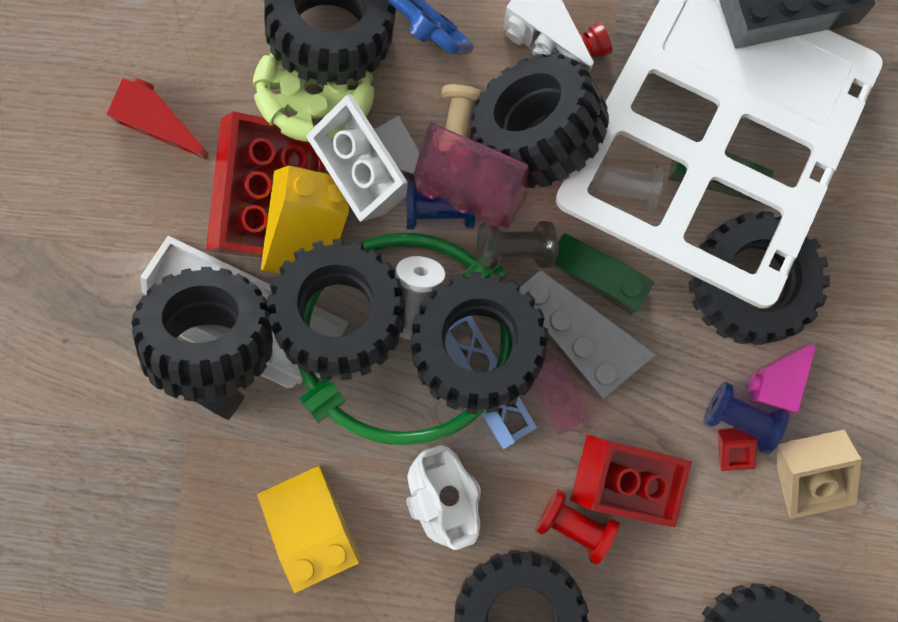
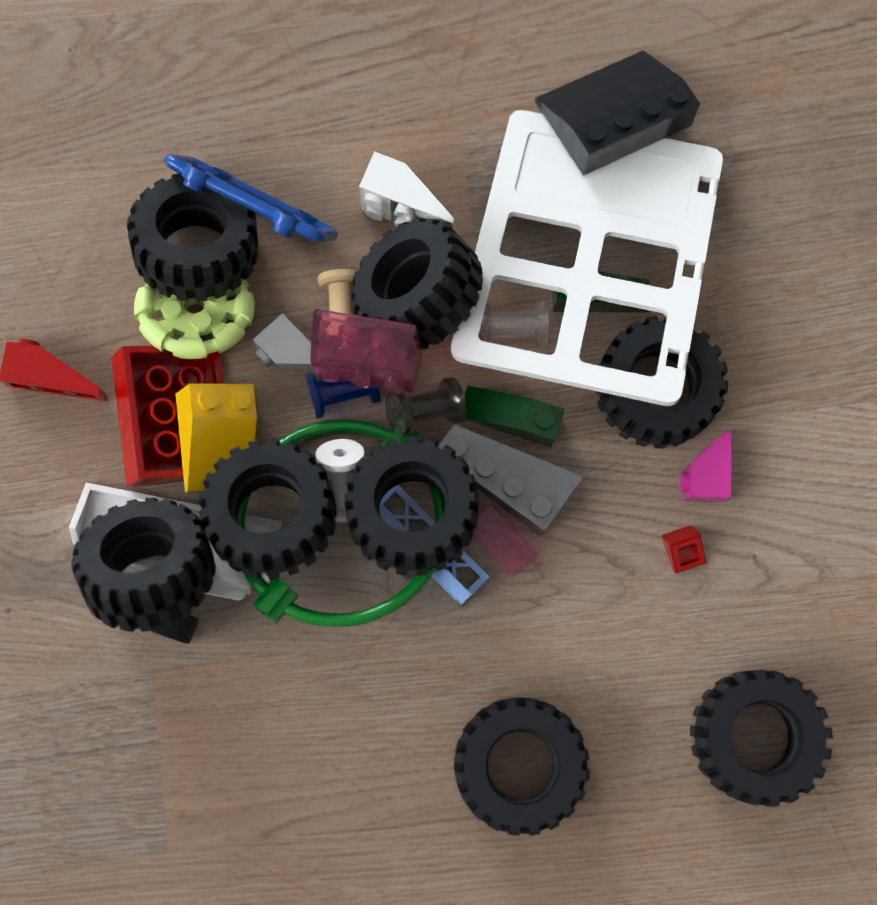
camera: 20 degrees left, 5 degrees down
(308, 529) = (291, 731): yellow slope -> none
(358, 161) = (255, 363): white slope -> none
(448, 525) = (425, 692): white piece -> none
(577, 527) = (552, 661): red piece -> none
(597, 41) = (453, 199): red wheel -> none
(630, 481) = (591, 604): red slope -> none
(761, 425) = (685, 516): clear blue piece -> none
(818, 473) = (767, 552): tan slope -> none

